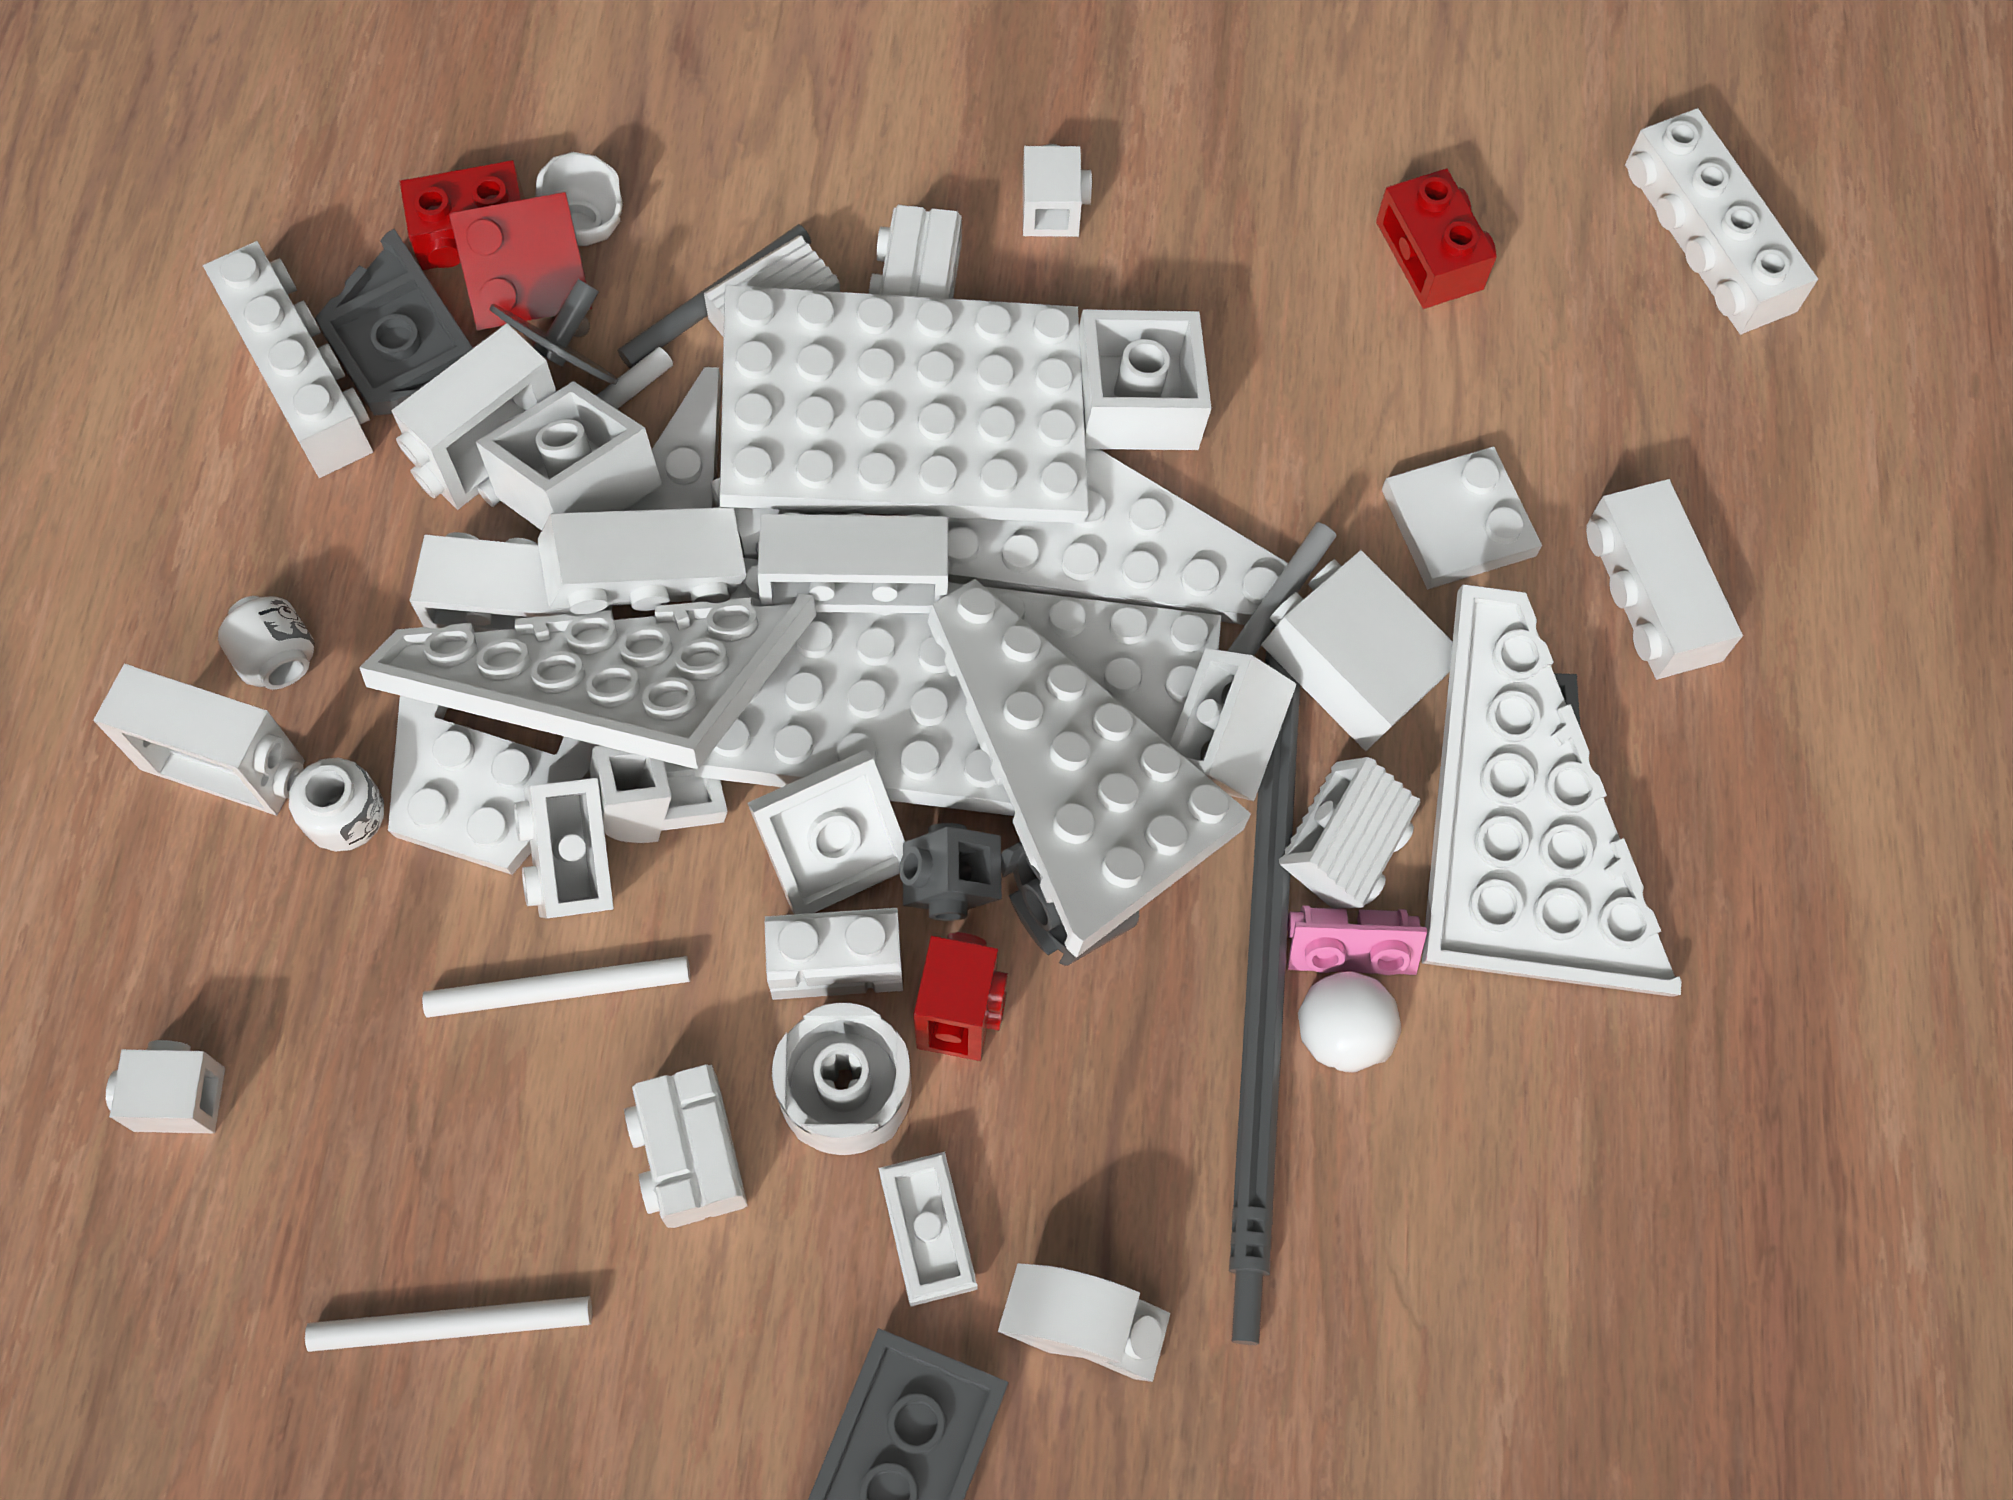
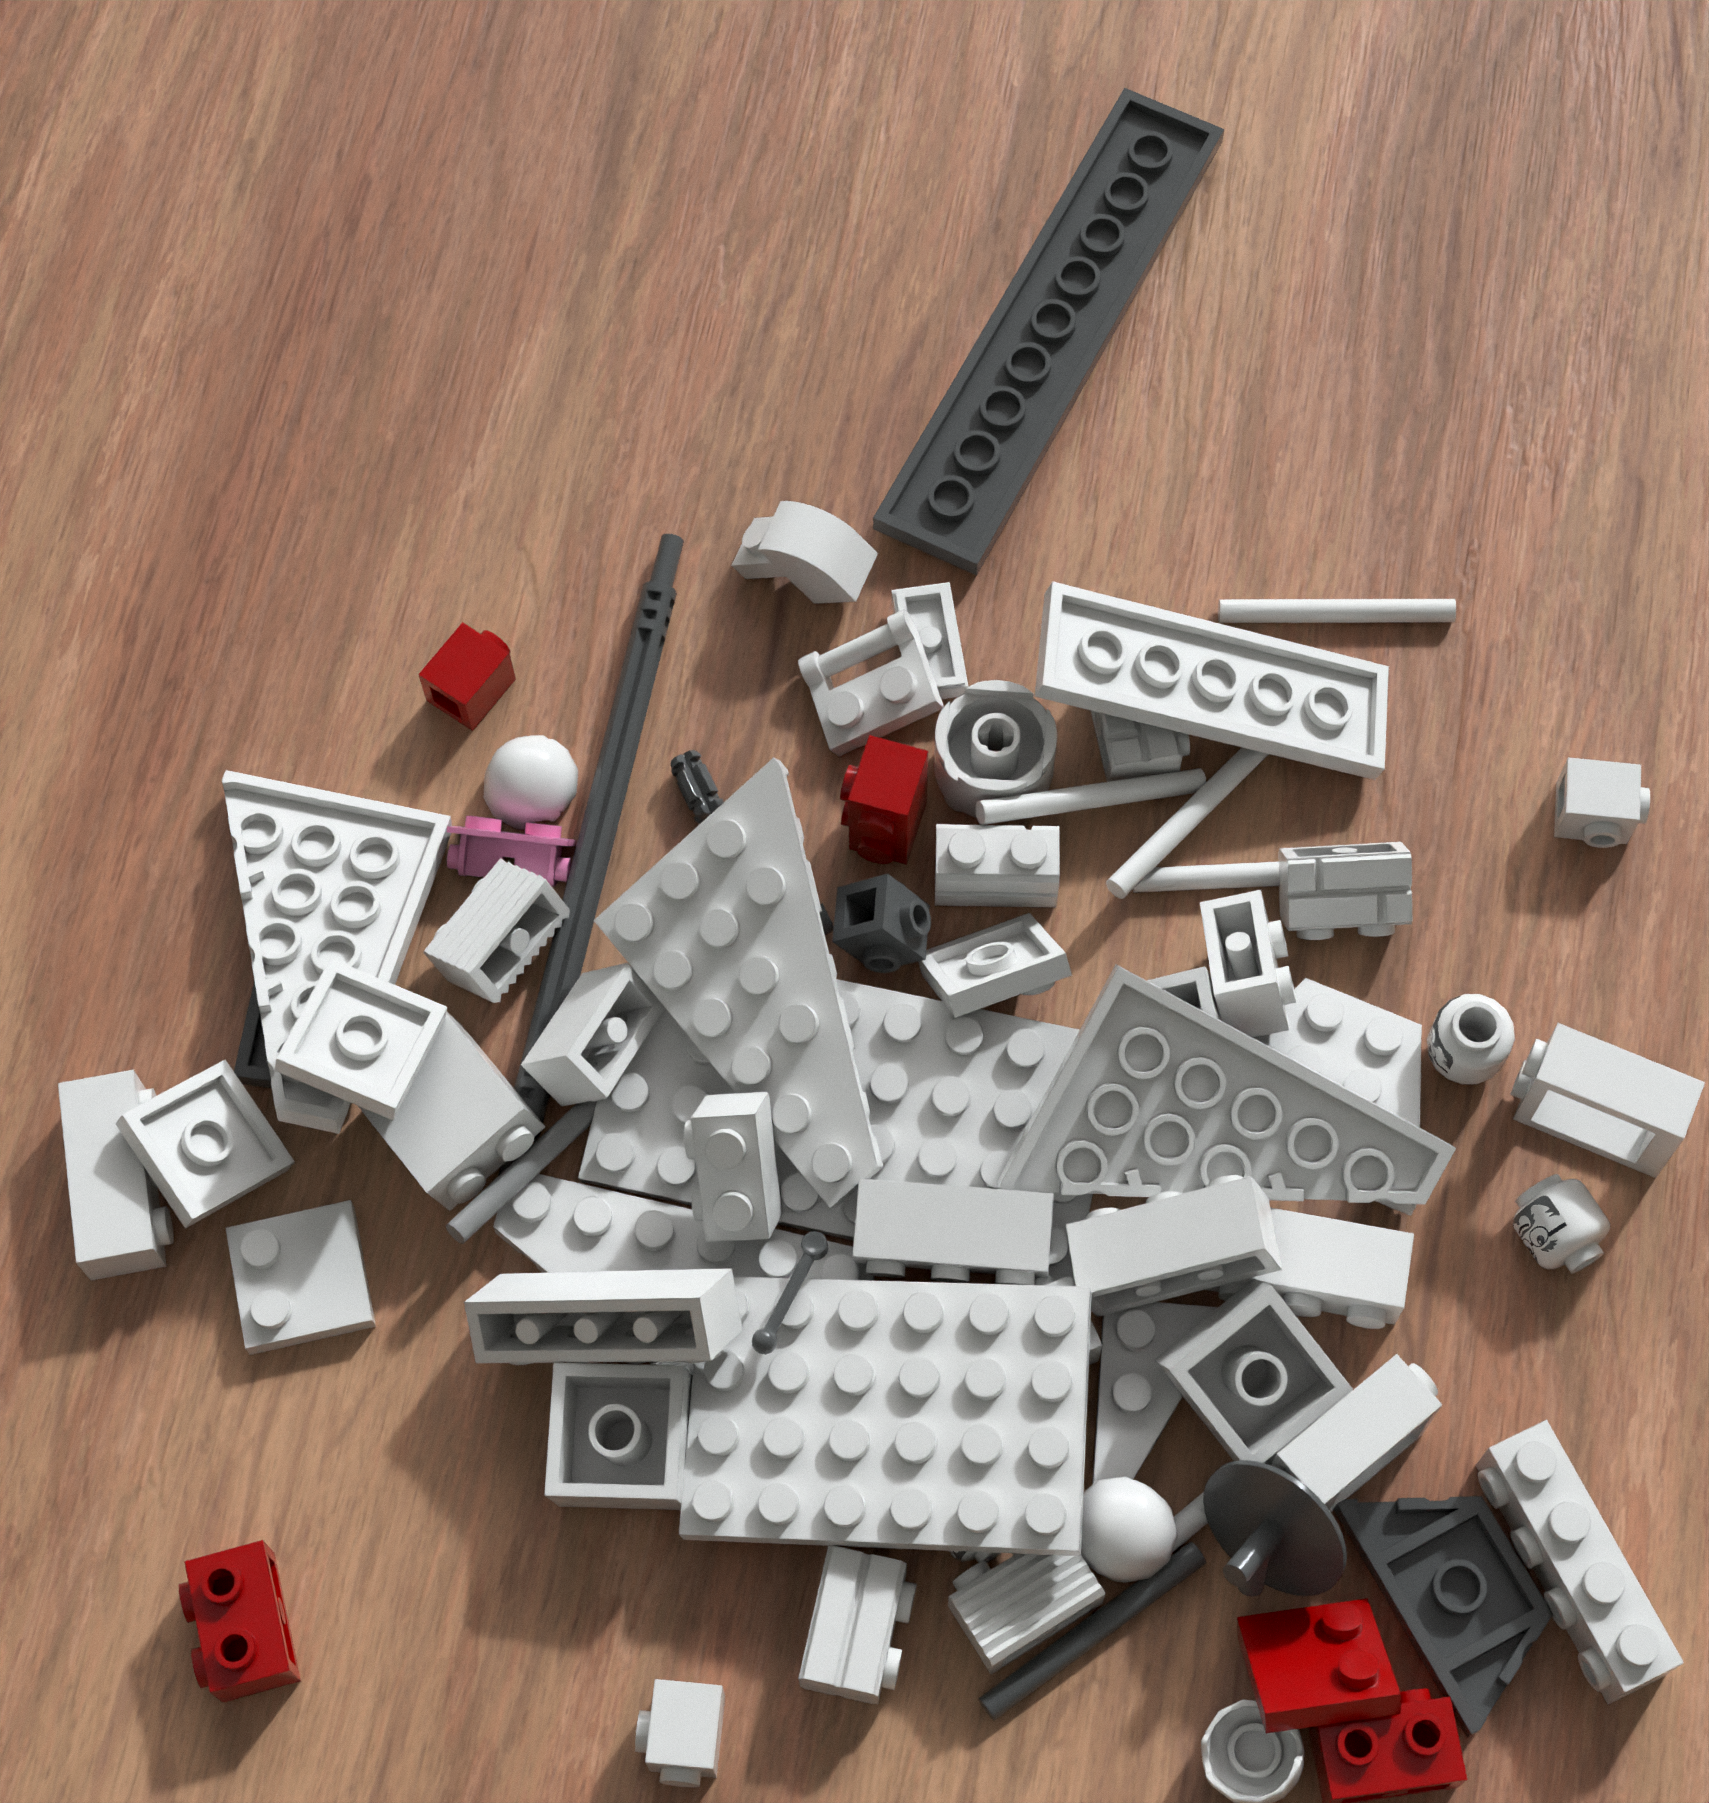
camera: 170 degrees left, 0 degrees up
(456, 959) = (1345, 889): none -> white brick
(598, 1170) = (1212, 681): none -> white plate
(621, 1043) = (1183, 822): none -> white bar
(686, 350) = (1126, 1530): none -> white hair
(737, 1036) = (1089, 796): none -> white bar
(982, 1139) = (879, 699): none -> white plate
(985, 522) = (814, 1248): none -> dark grey hinge
(1069, 586) = (735, 1167): none -> white brick
(1168, 1031) = (696, 784): none -> dark grey piece
(1171, 451) = (604, 1317): none -> white brick
(1445, 1133) = (468, 675): none -> red brick
(1459, 657) = (361, 1039): none -> white plate
(1590, 600) = (204, 1143): none -> white plate

